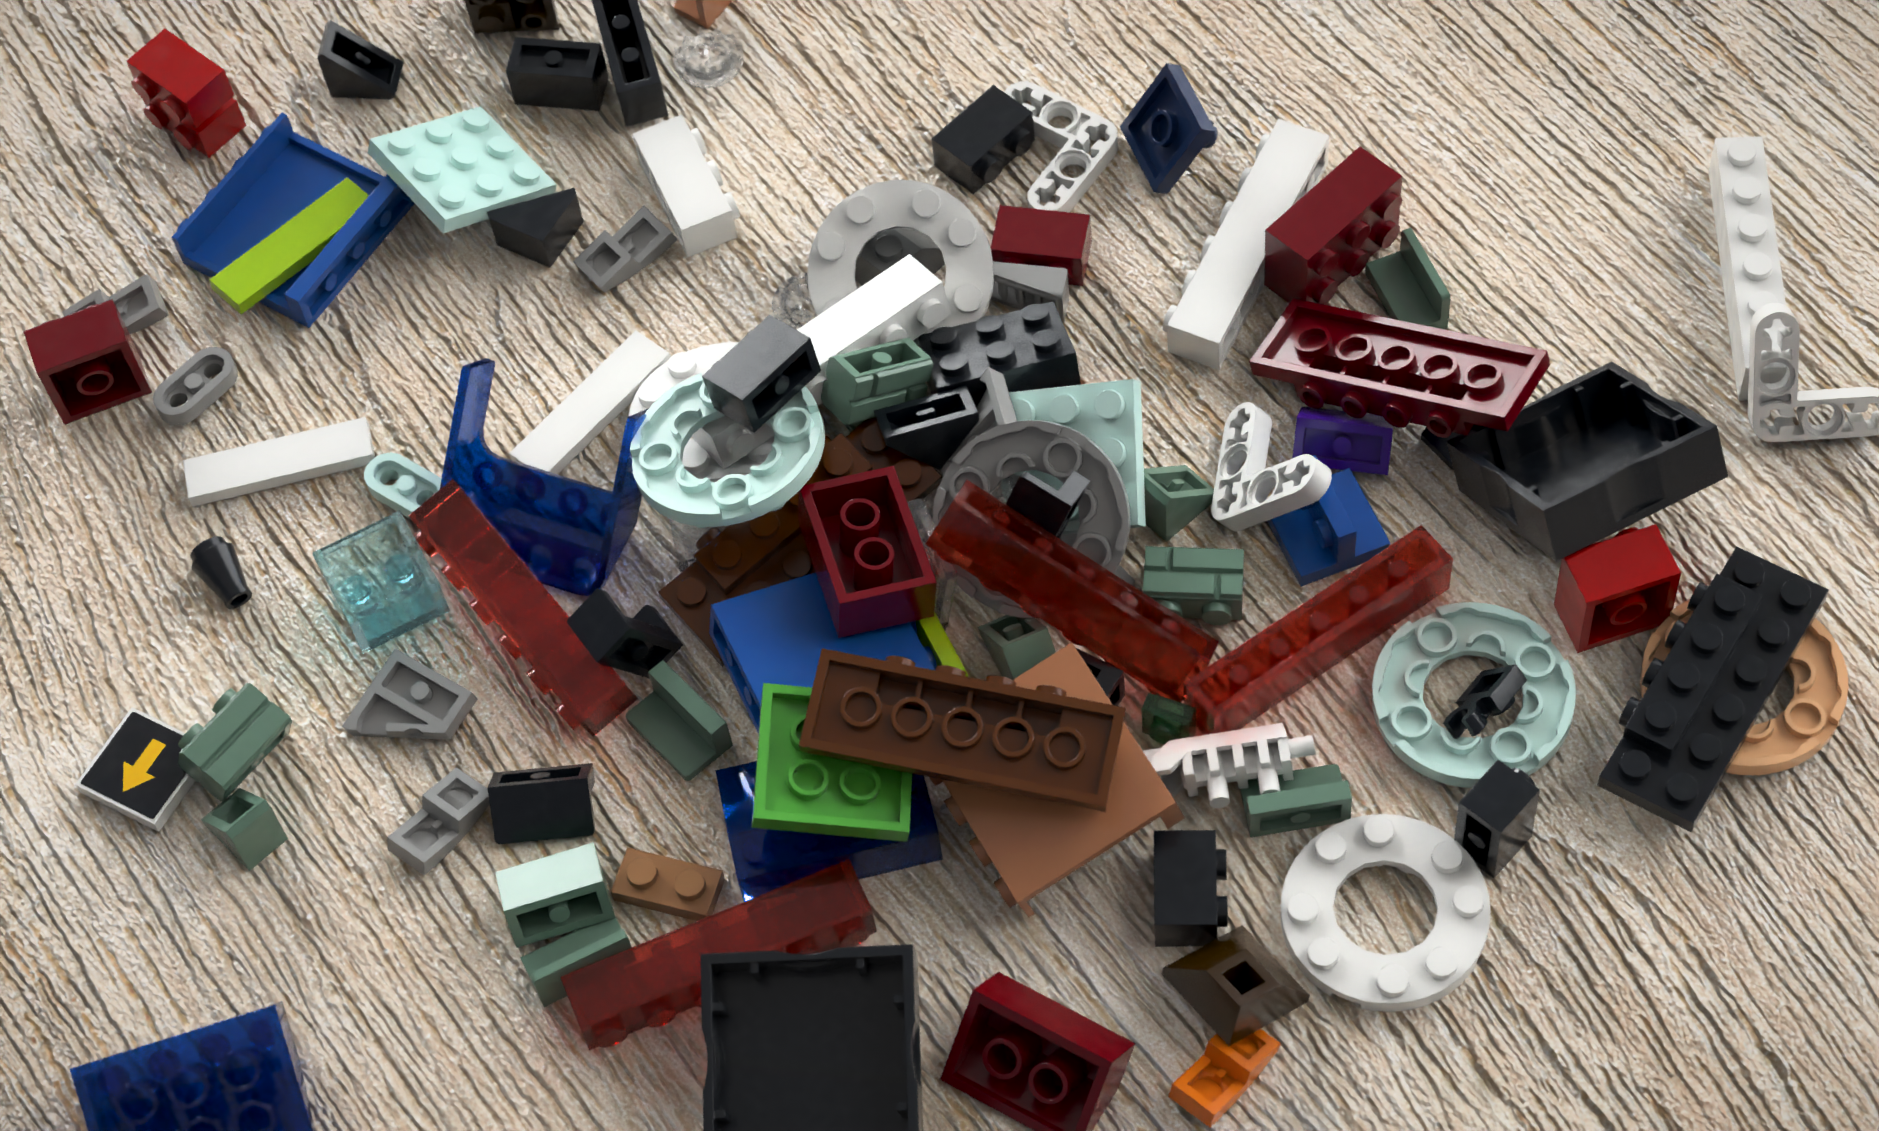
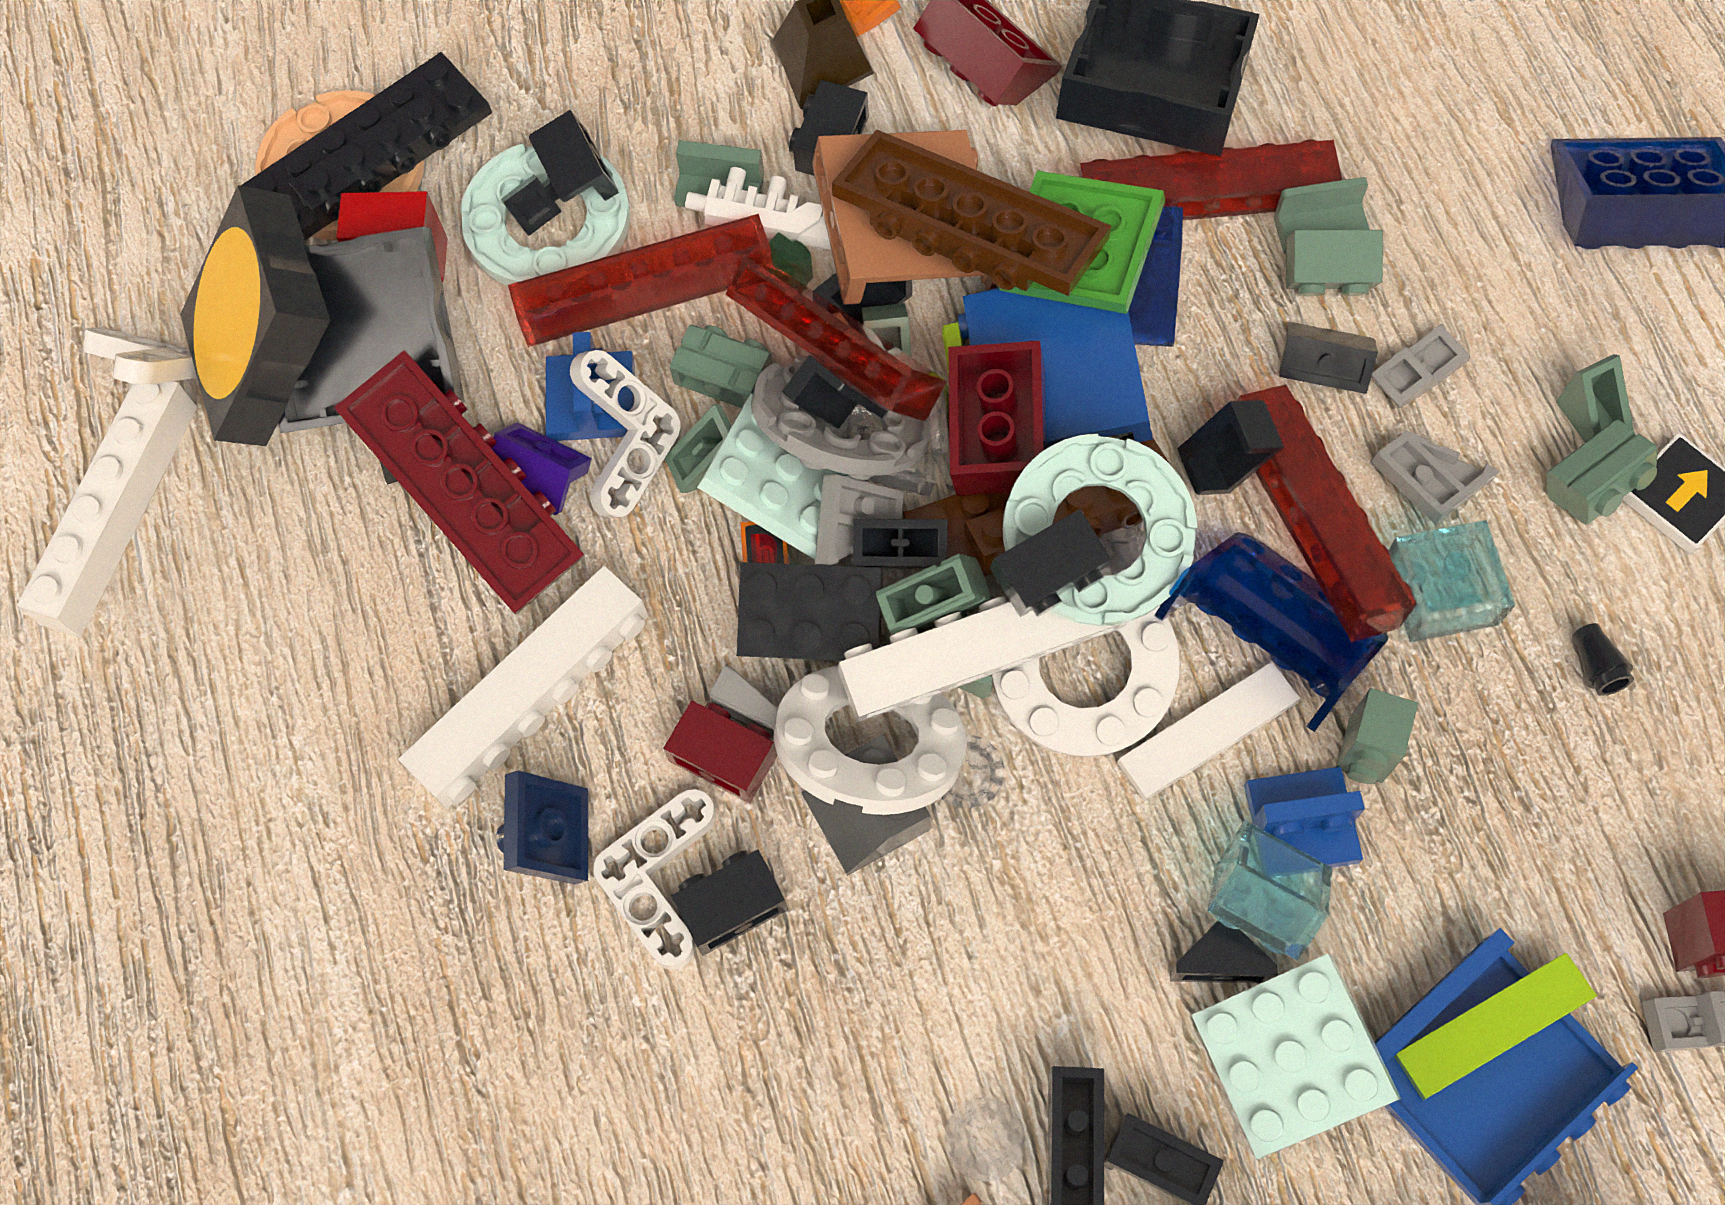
camera: 165 degrees left, 10 degrees up
(194, 387) = (1615, 889): light grey plate -> none
(278, 461) = (1534, 773): white tile -> none
(412, 486) = (1411, 685): light aqua plate -> none
(425, 413) = (1376, 736): none -> sand green brick
(497, 337) = (1309, 813): none -> blue bracket
(504, 261) = (1270, 891): none -> clear light blue piece
(633, 247) = (1135, 907): light grey slope -> none
(667, 885) = (1236, 261): medium nougat plate -> none
(679, 723) = (1191, 383): sand green panel -> none
(687, 185) = (1053, 957): white brick -> none
(1333, 229) = (442, 647): dark red brick -> none
(1371, 978) = (648, 53): white plate -> none
(1410, 284) = (407, 591): sand green panel -> none
(1456, 728) = (571, 158): none -> black panel
(1497, 817) = (580, 84): black brick -> none
(1685, 408) = (253, 316): none -> black tile

